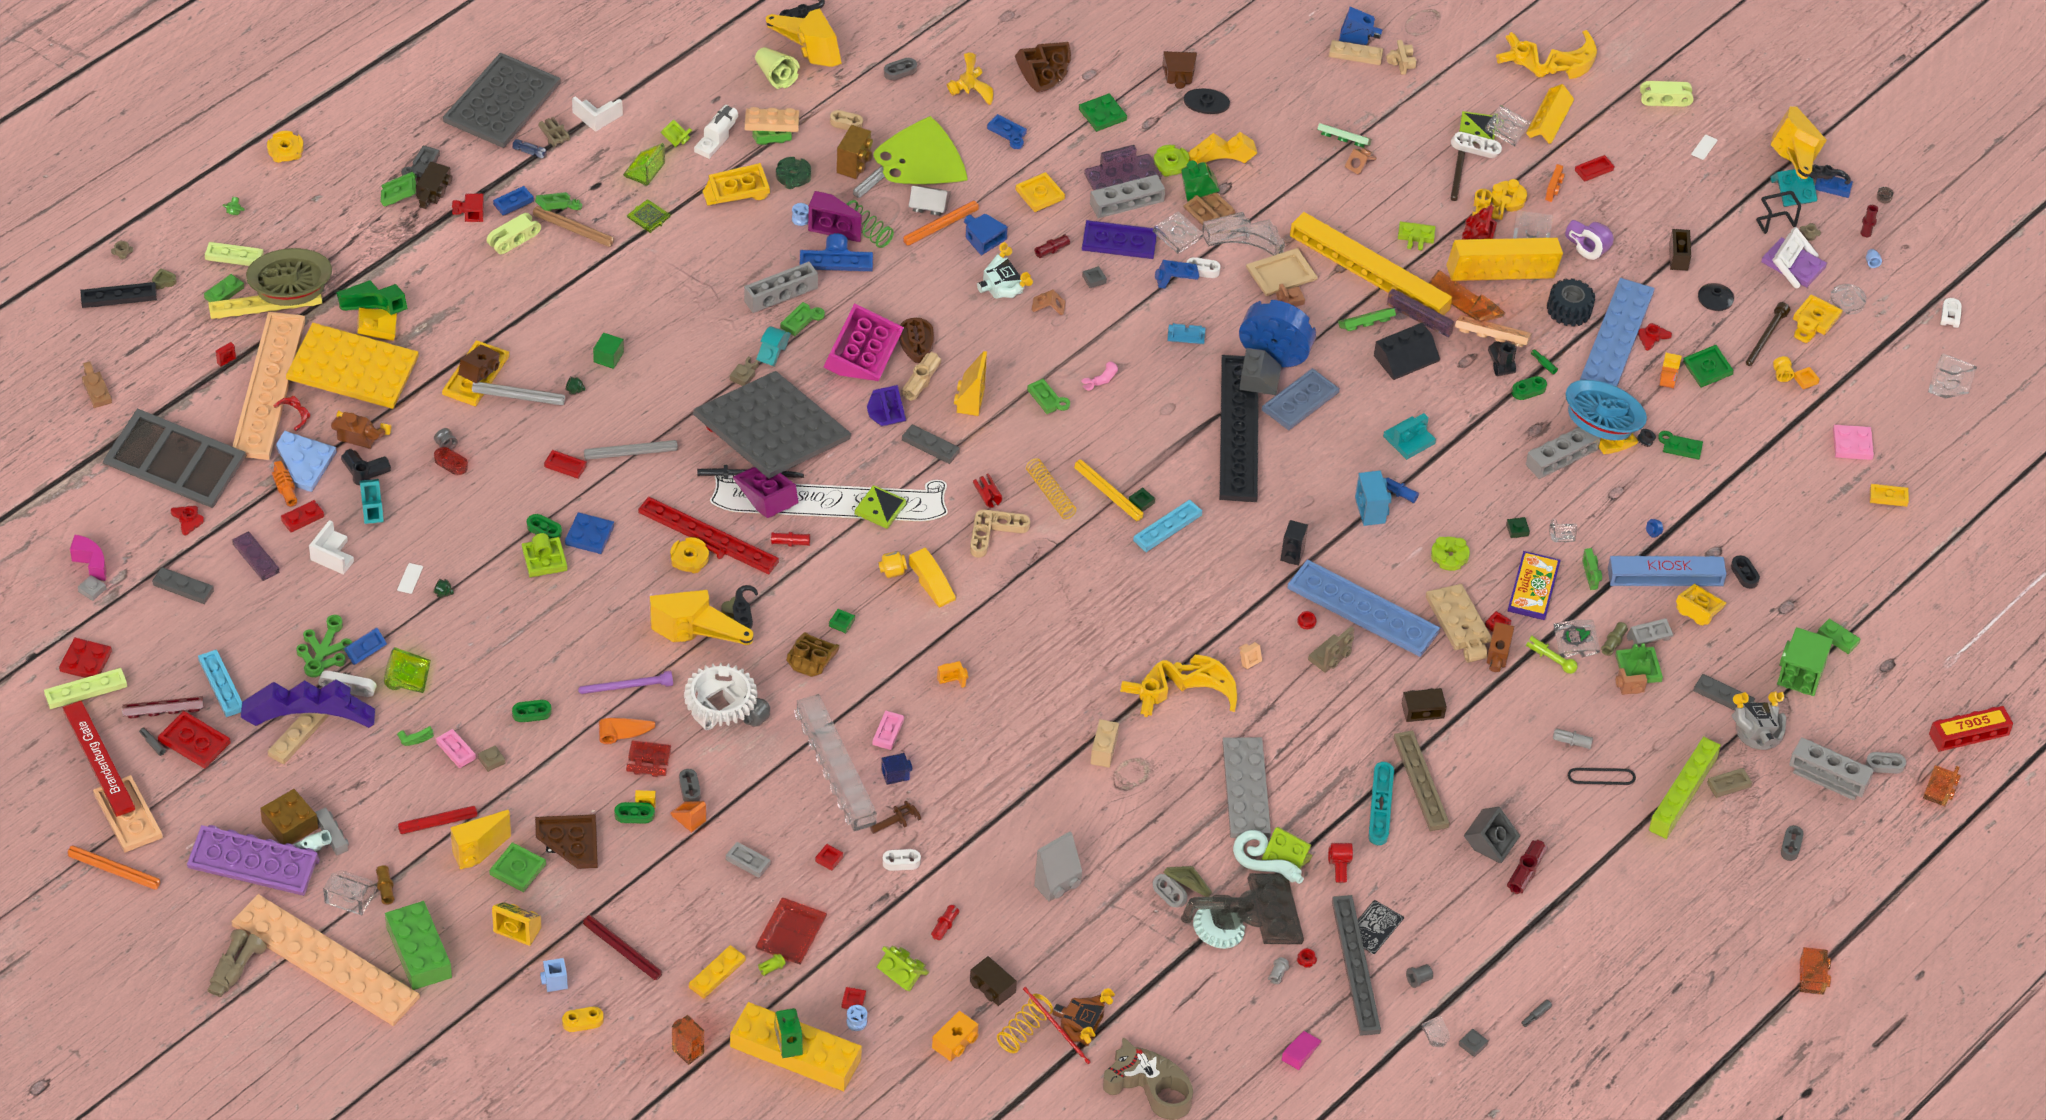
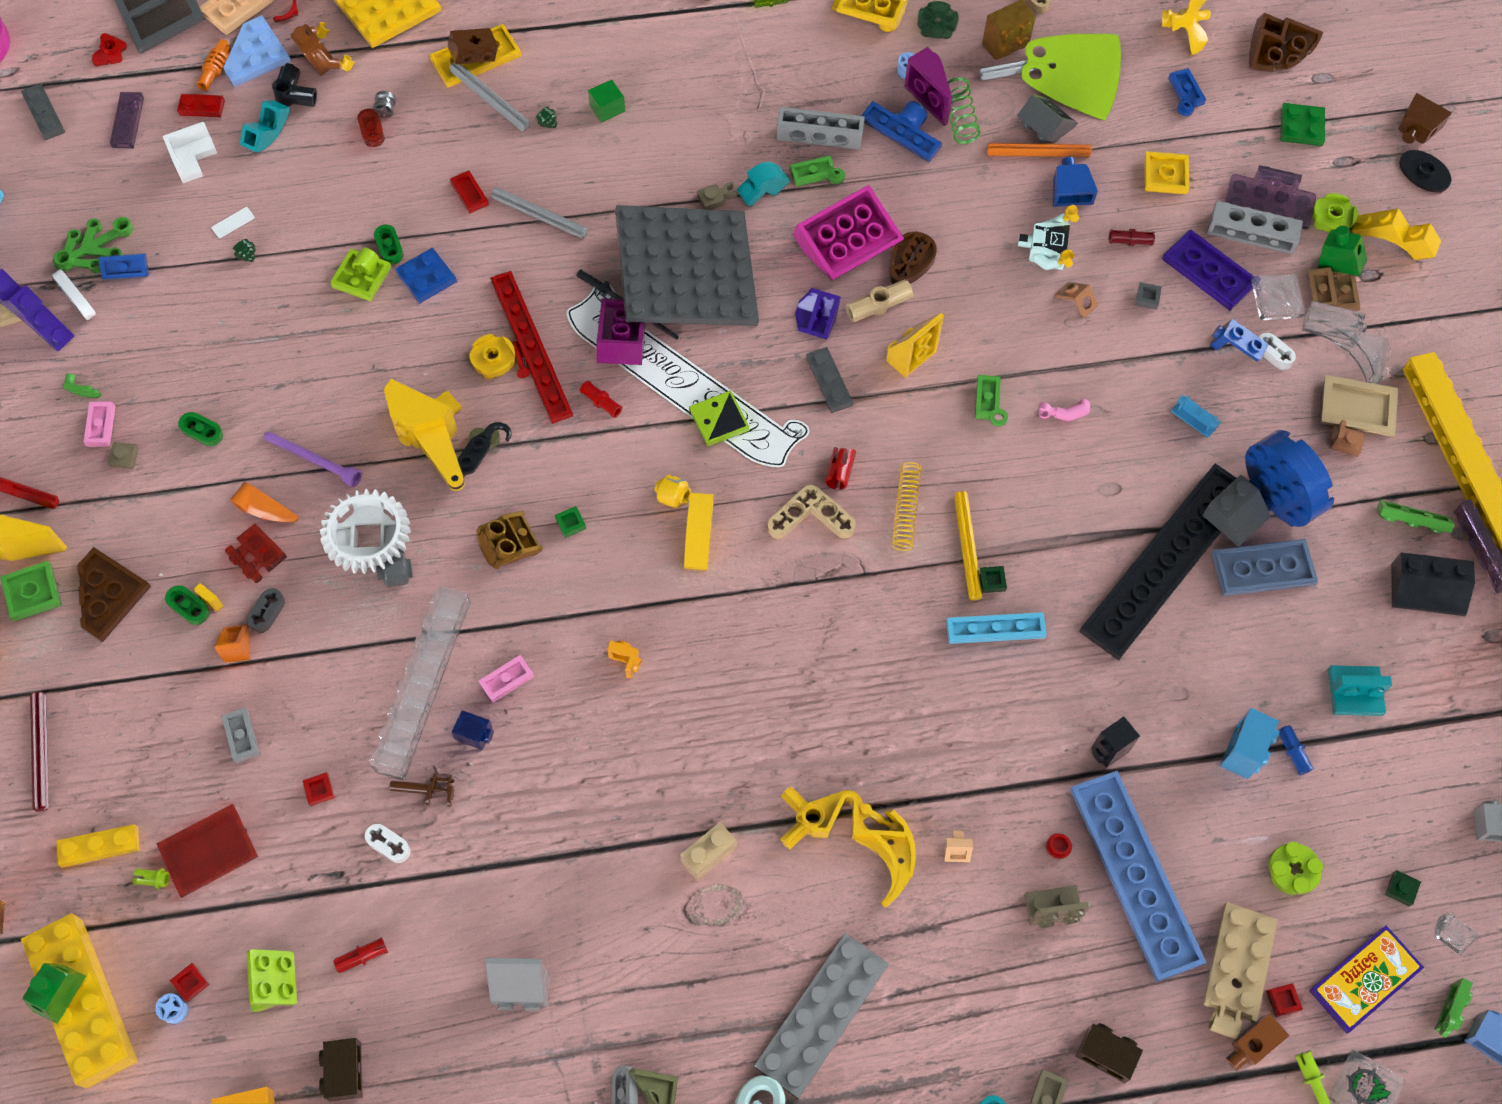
camera: 40 degrees right, 15 degrees up
(406, 671) = (131, 315): clear neon green slope -> none

